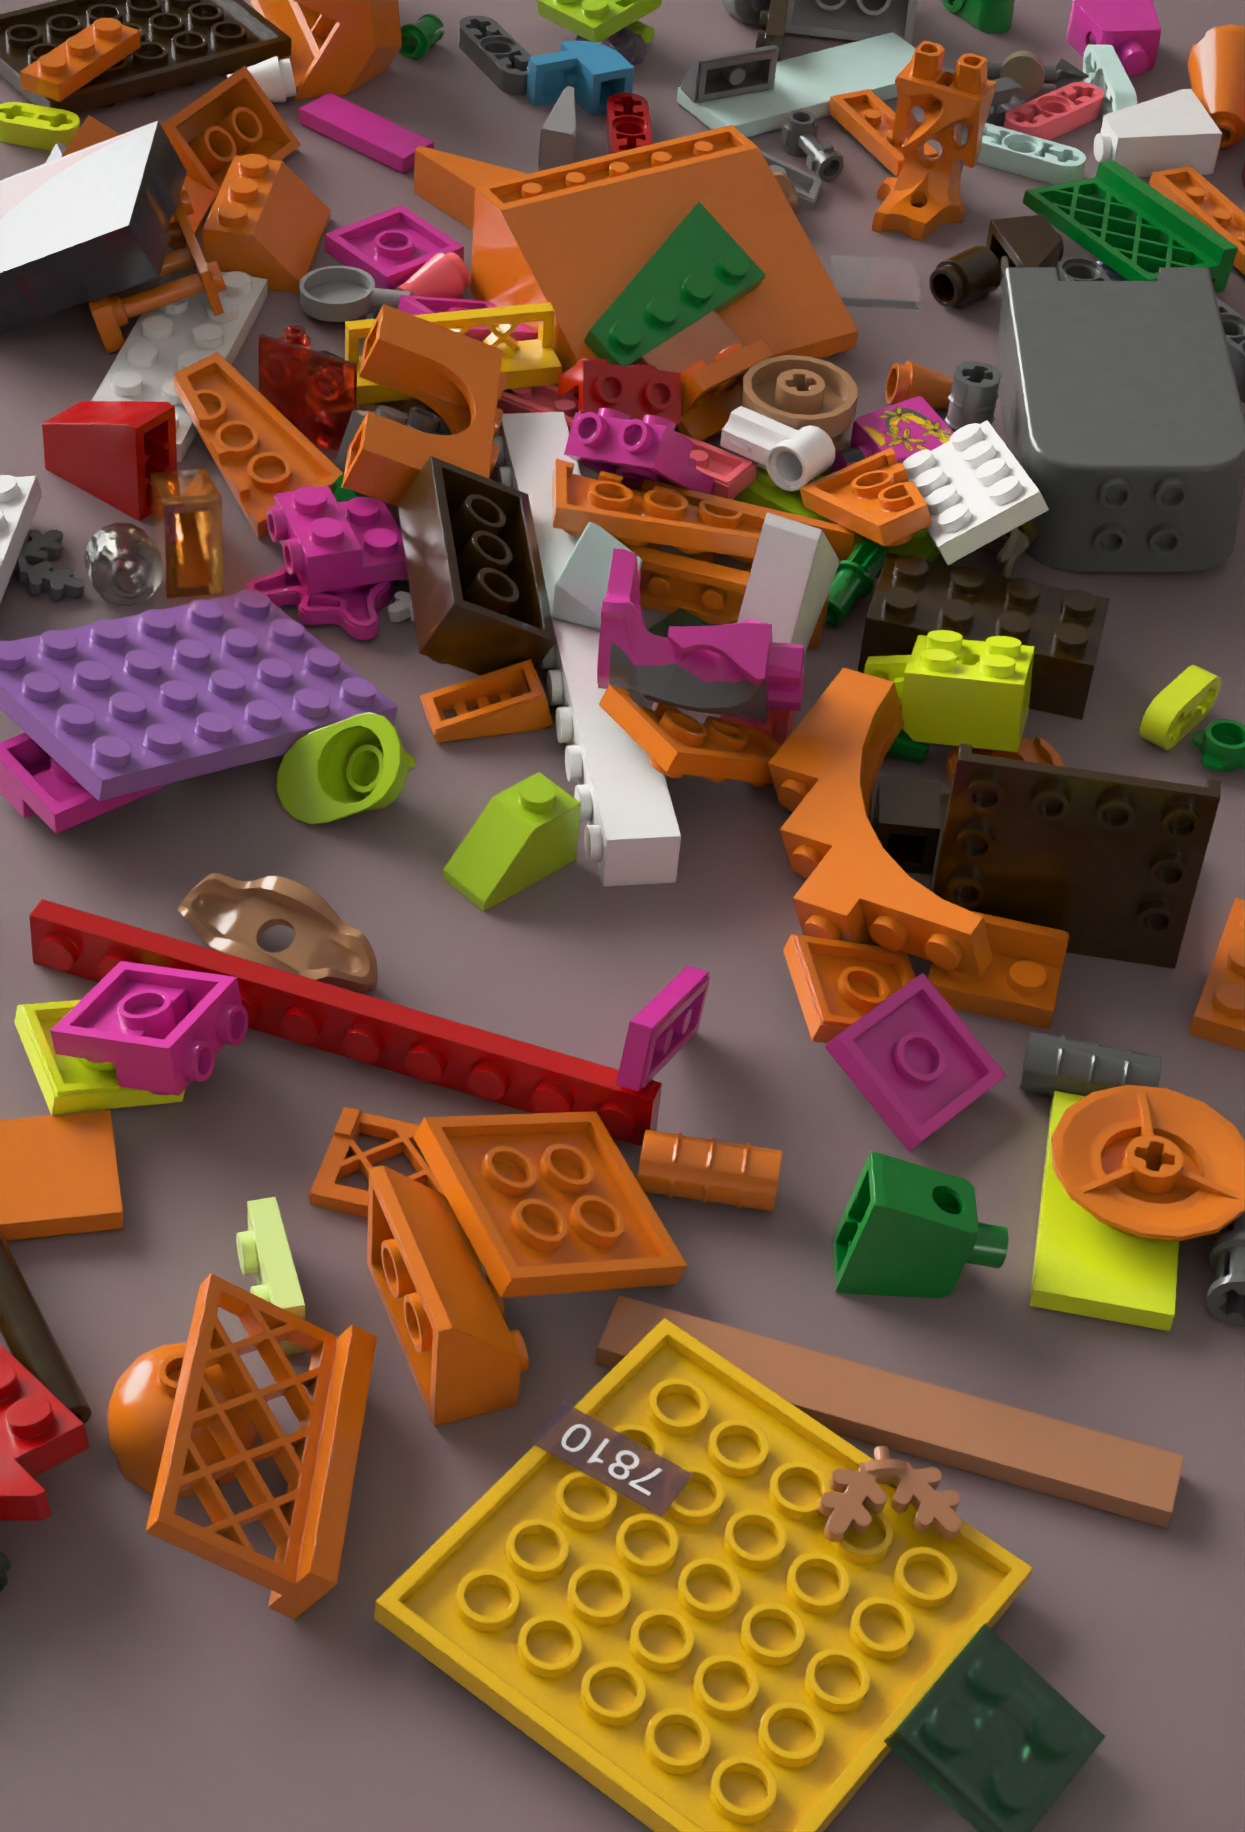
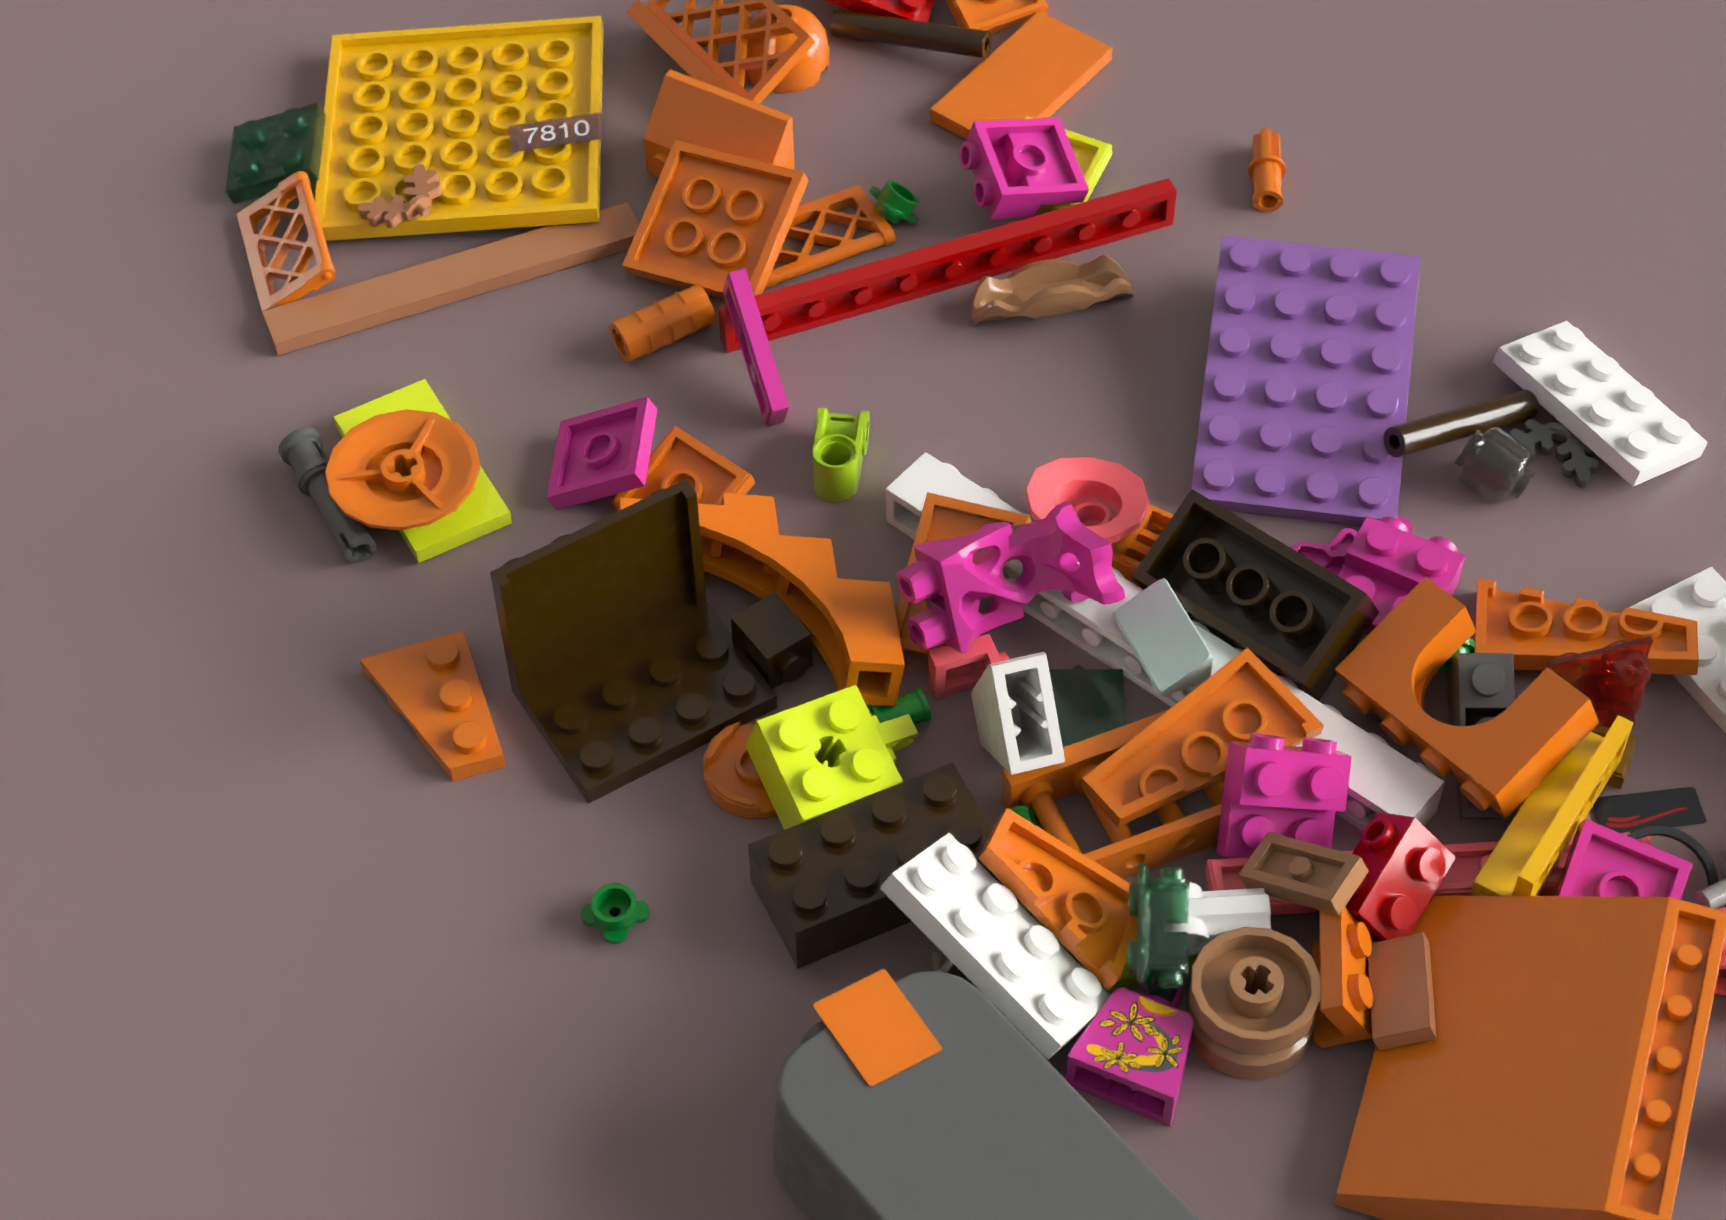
camera: 145 degrees right, 10 degrees up
(107, 589) = (1460, 423): none -> dark brown piece
(113, 449) = (1636, 537): red slope -> none
(188, 532) = (1499, 512): clear orange slope -> none
(267, 1254) = (821, 124): yellowish green plate -> none
(305, 1128) = (895, 202): none -> green plate
(344, 770) = (1138, 420): lime piece -> none
(512, 720) = (1101, 492): none -> coral hat
(516, 842) = (993, 450): lime slope -> none
(668, 929) = (839, 453): none -> lime piece
(683, 281) = (1477, 1016): green wing -> none
(693, 400) = (1304, 873): none -> medium nougat plate
(837, 438) = (1157, 951): none -> clear green hinge
(911, 1232) = (510, 339): green torso -> none
(916, 380) = (1213, 1168): orange cone -> none
(973, 394) = (1110, 1087): dark grey axle -> none
(1052, 1650) = (298, 281): none -> orange window
(1083, 1067) = (496, 537): dark grey axle -> none
(1134, 448) = (877, 1027): none -> orange sticker
(1180, 707) = (674, 917): neon yellow beam -> none

